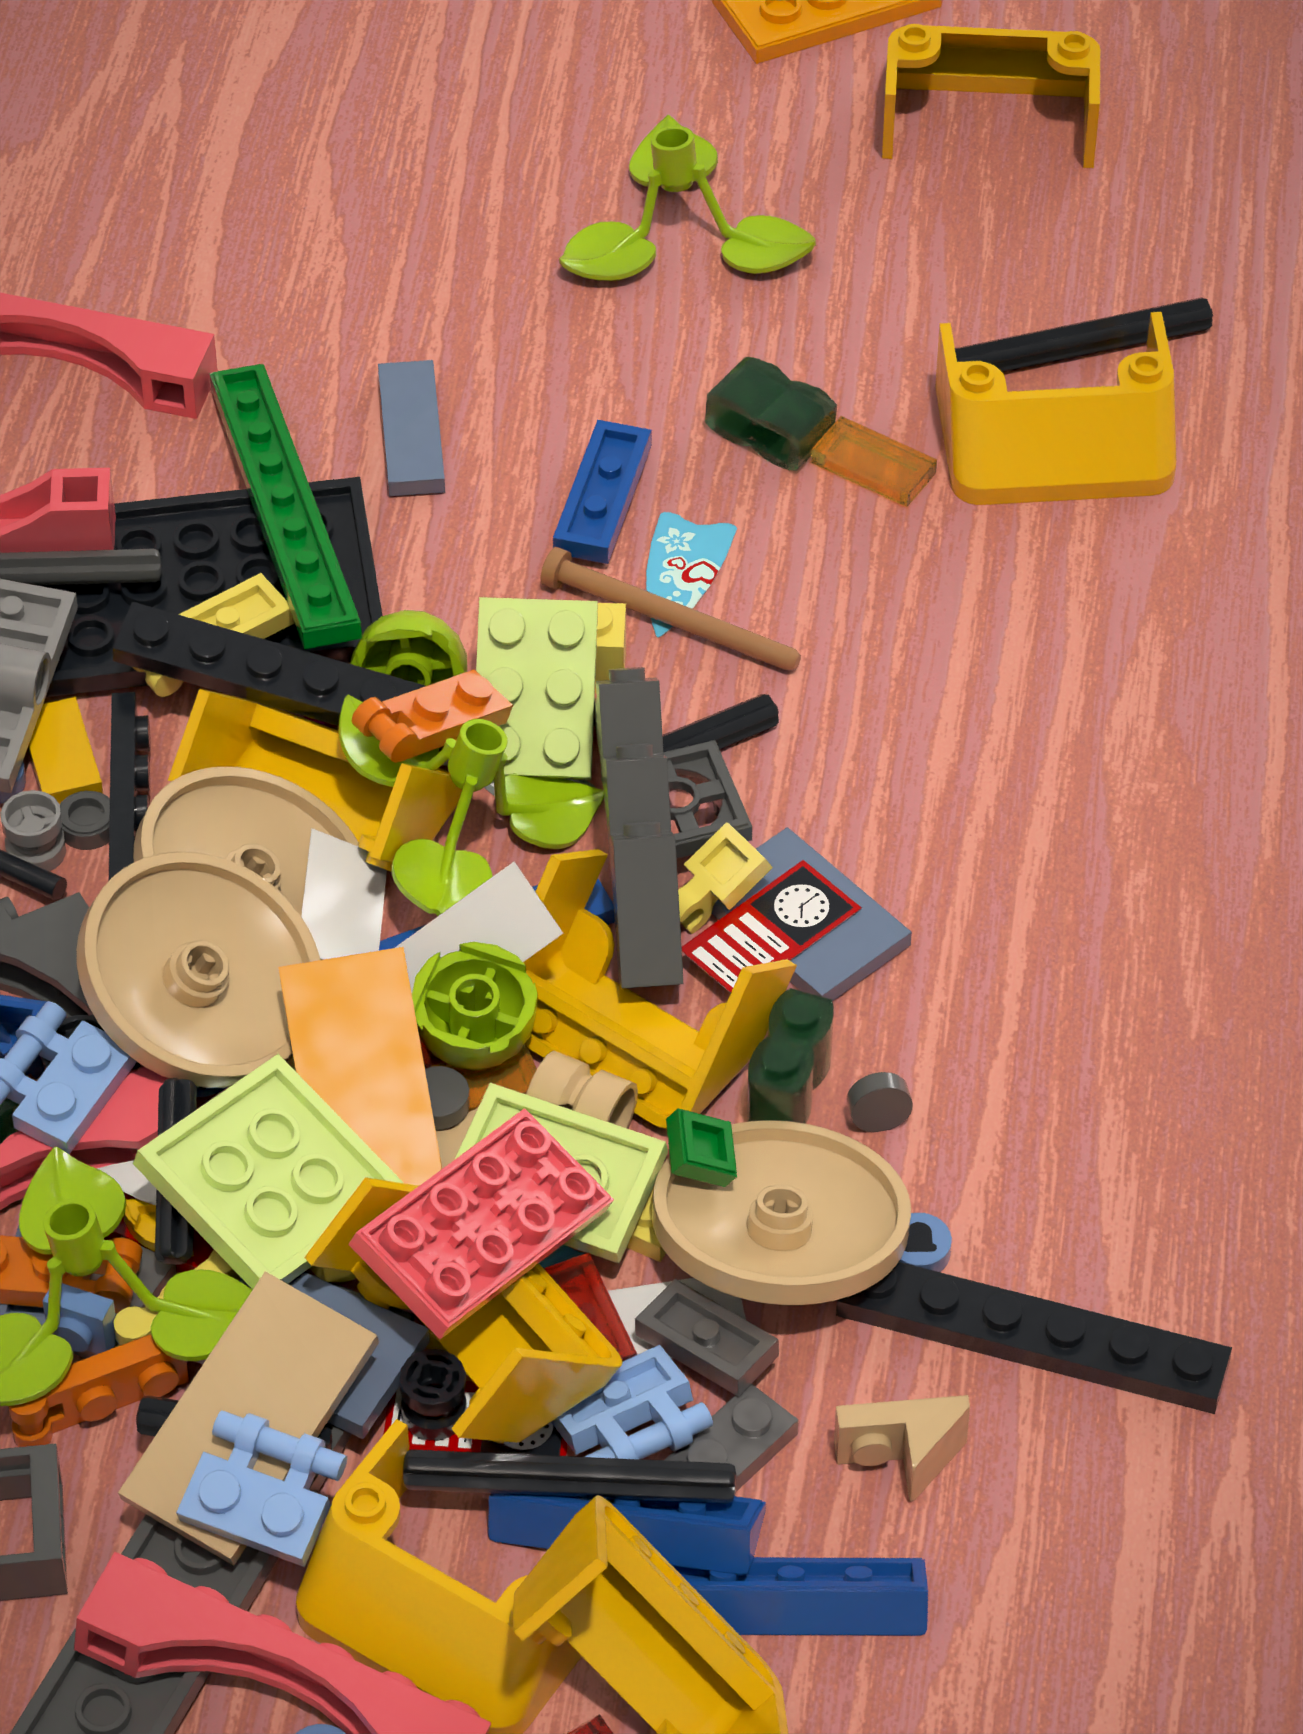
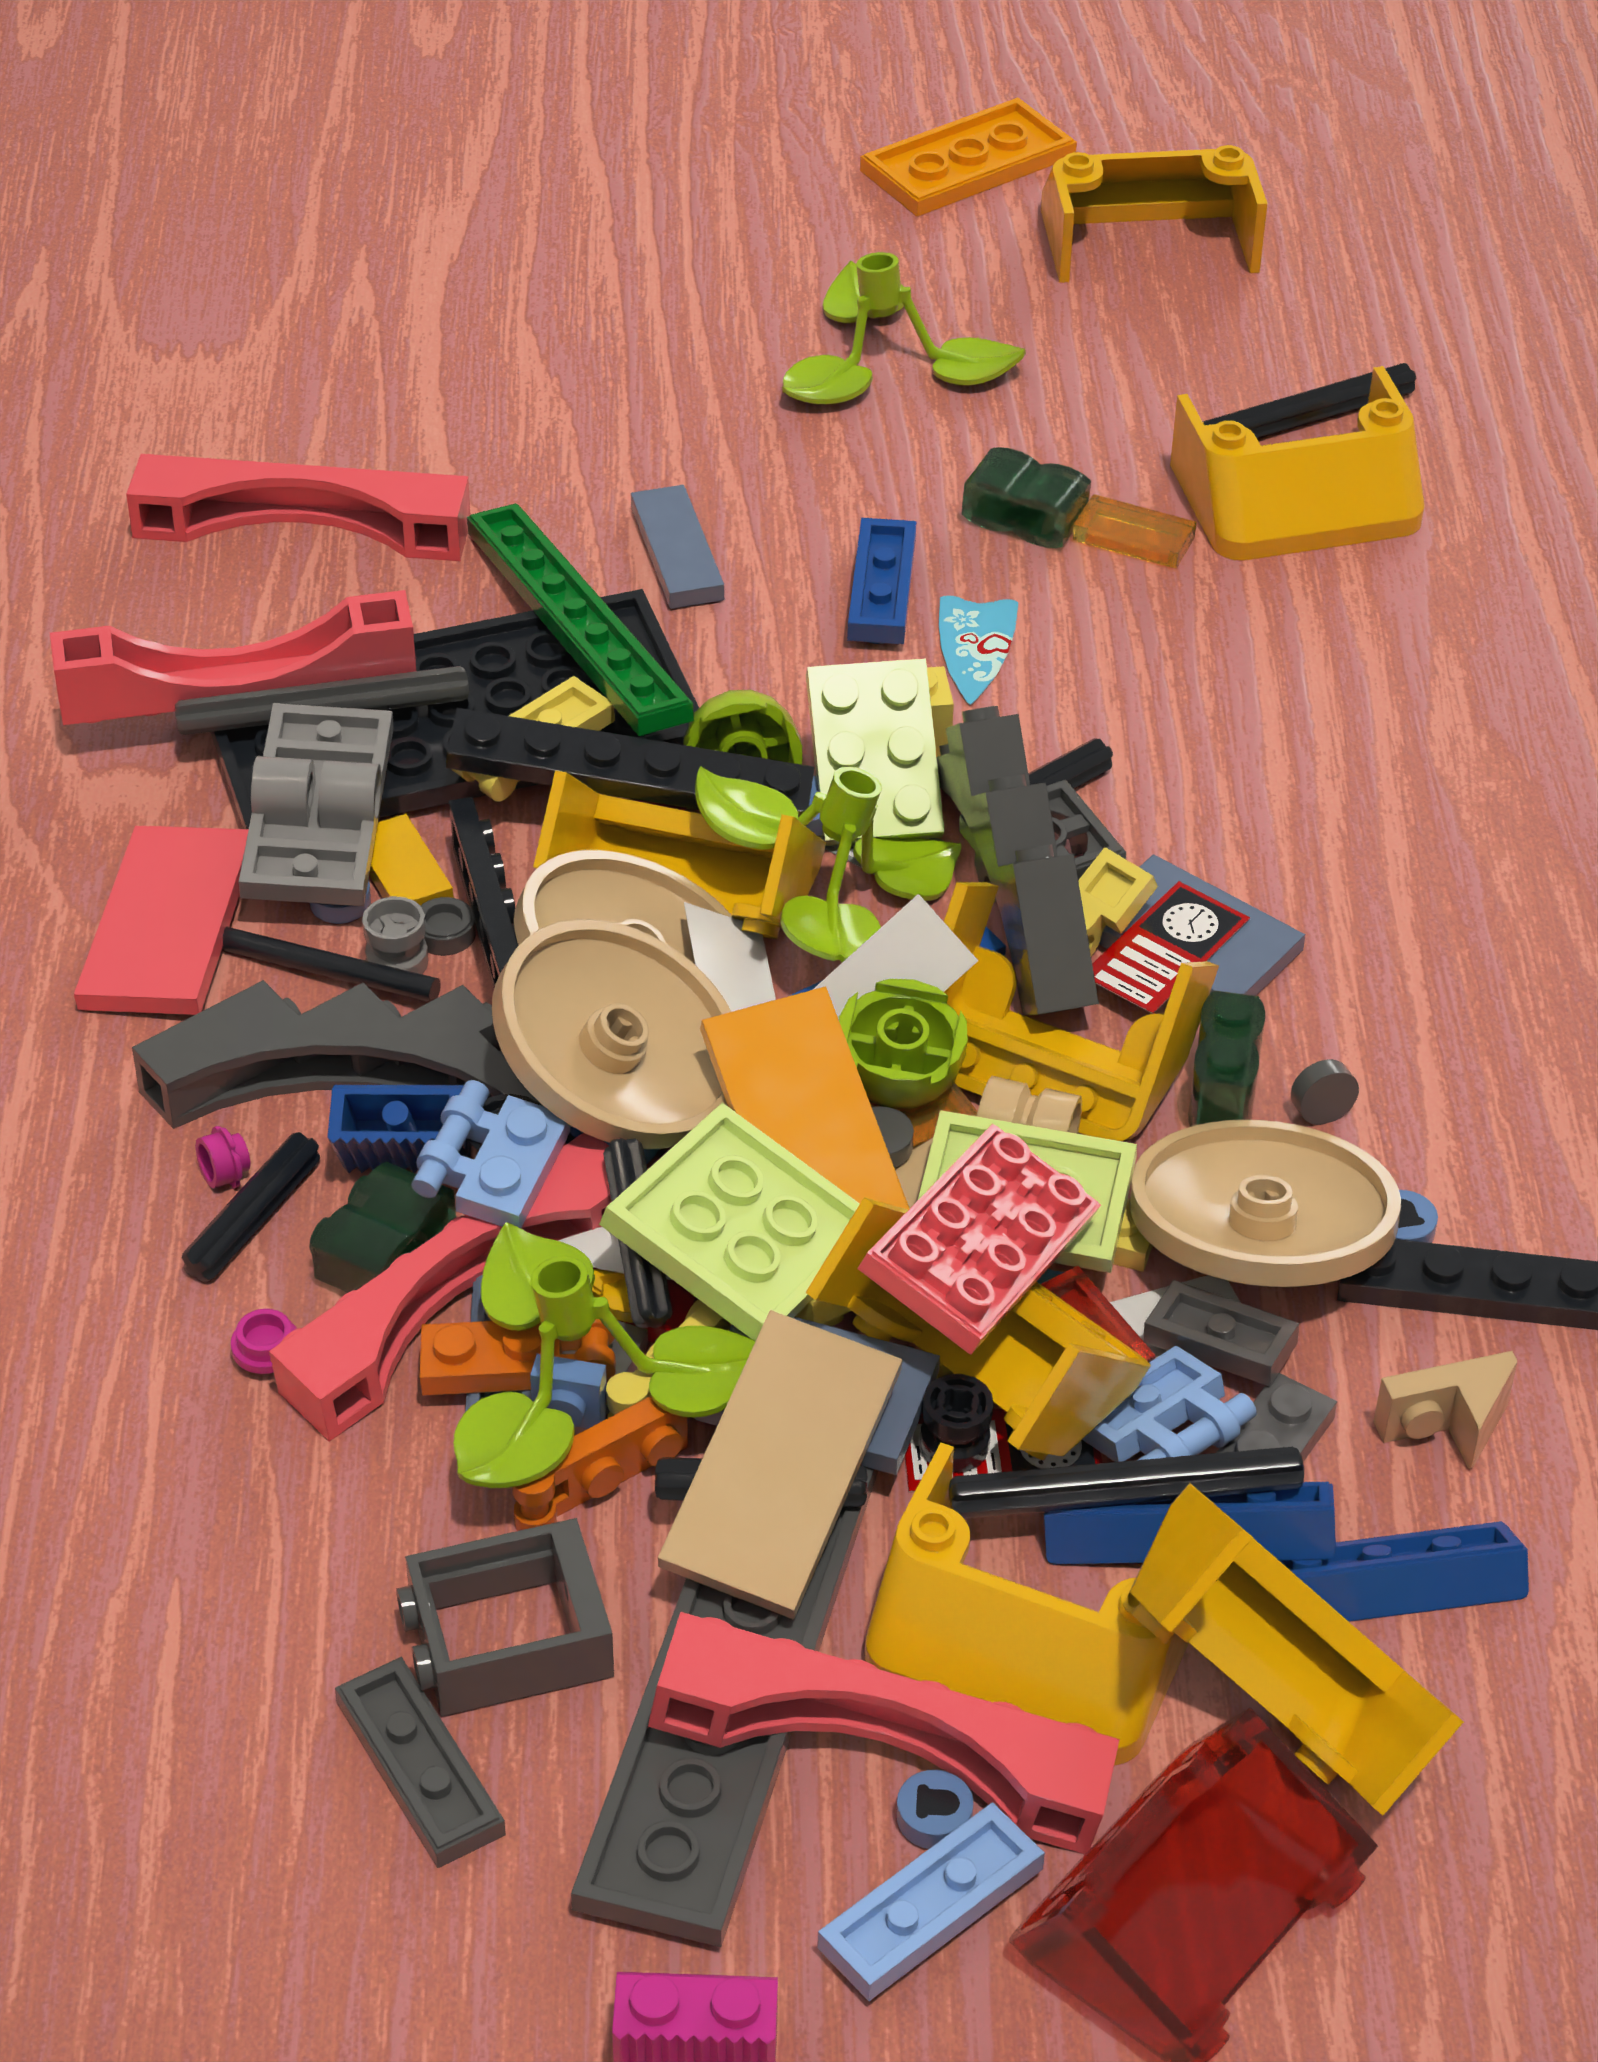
camera: 10 degrees left, 5 degrees down
(256, 1507) = (812, 1550): light blue plate -> none
(430, 714) = (785, 777): orange plate -> none
(560, 569) = (988, 681): medium nougat bar -> none
(701, 1147) = (1169, 1149): green tile -> none

